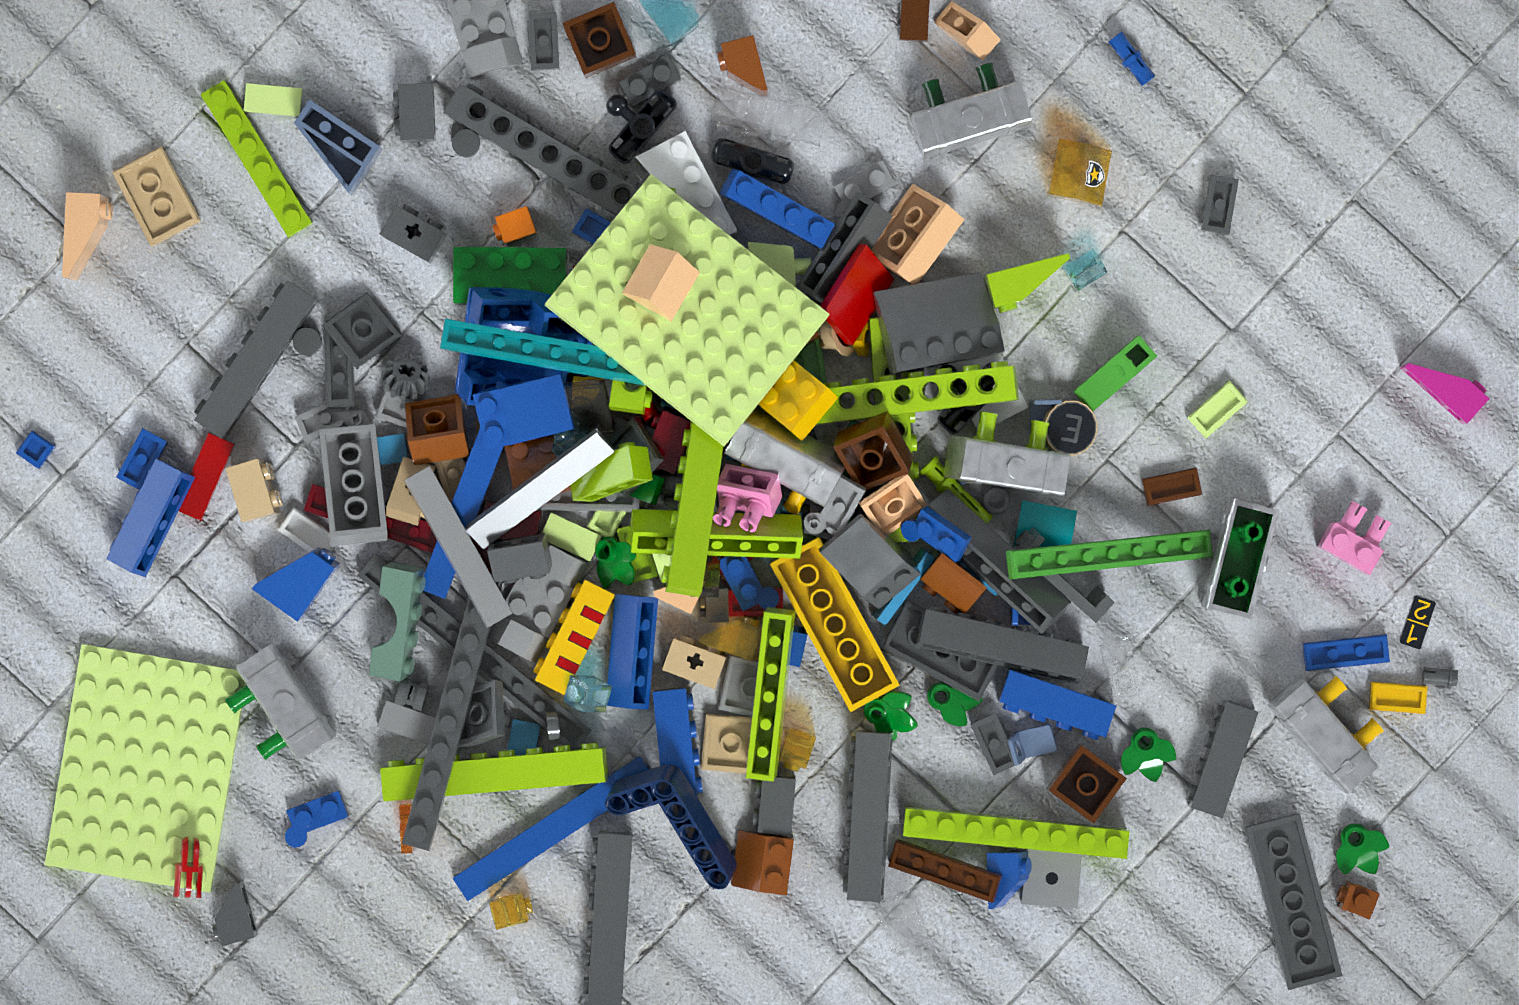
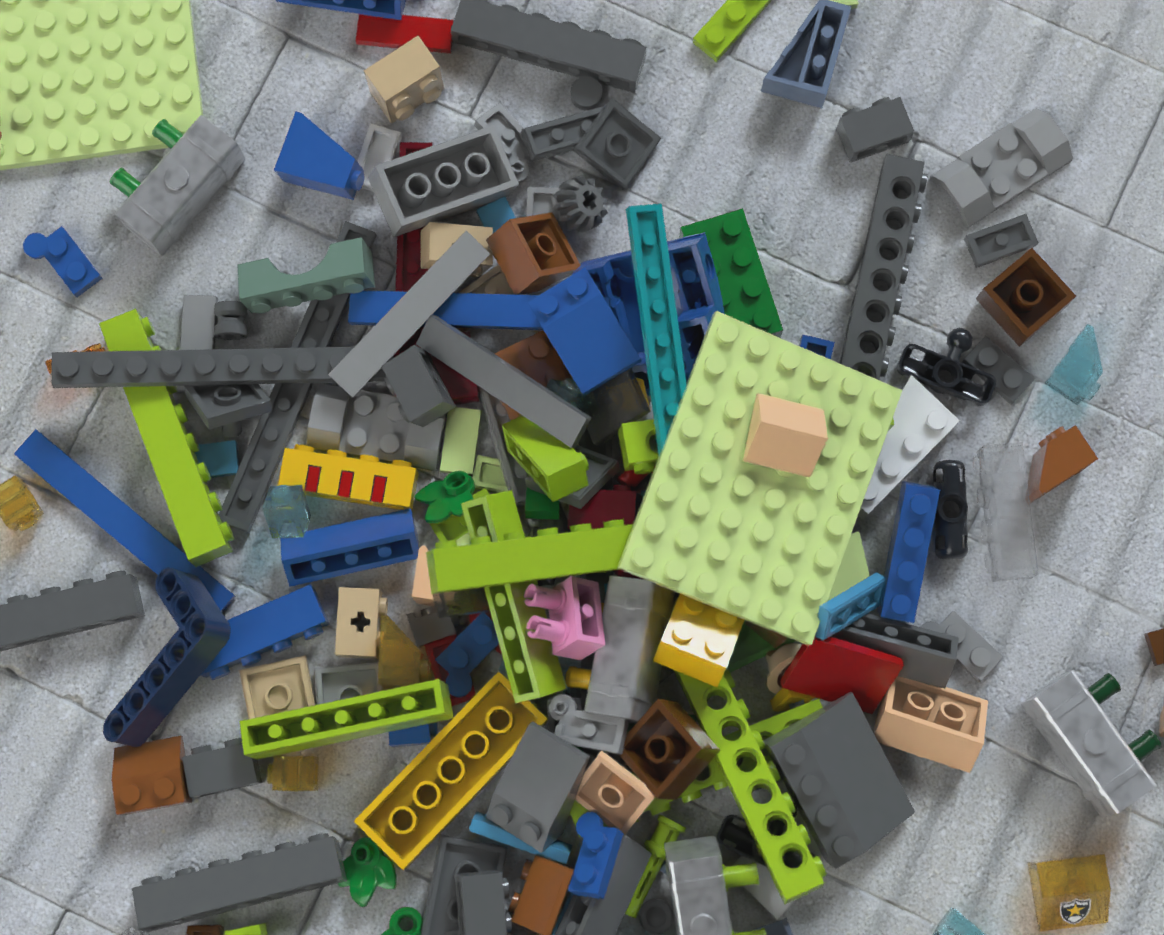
camera: 80 degrees right, 10 degrees down
(397, 232) = (748, 148): dark grey brick -> none
(466, 143) = (859, 193): dark grey tile -> none
(514, 226) = (787, 271): orange brick -> none
(552, 725) = (238, 483): dark grey tile -> none
(806, 270) = (850, 605): none -> dark azure tile
(1015, 284) = (916, 856): lime slope -> none

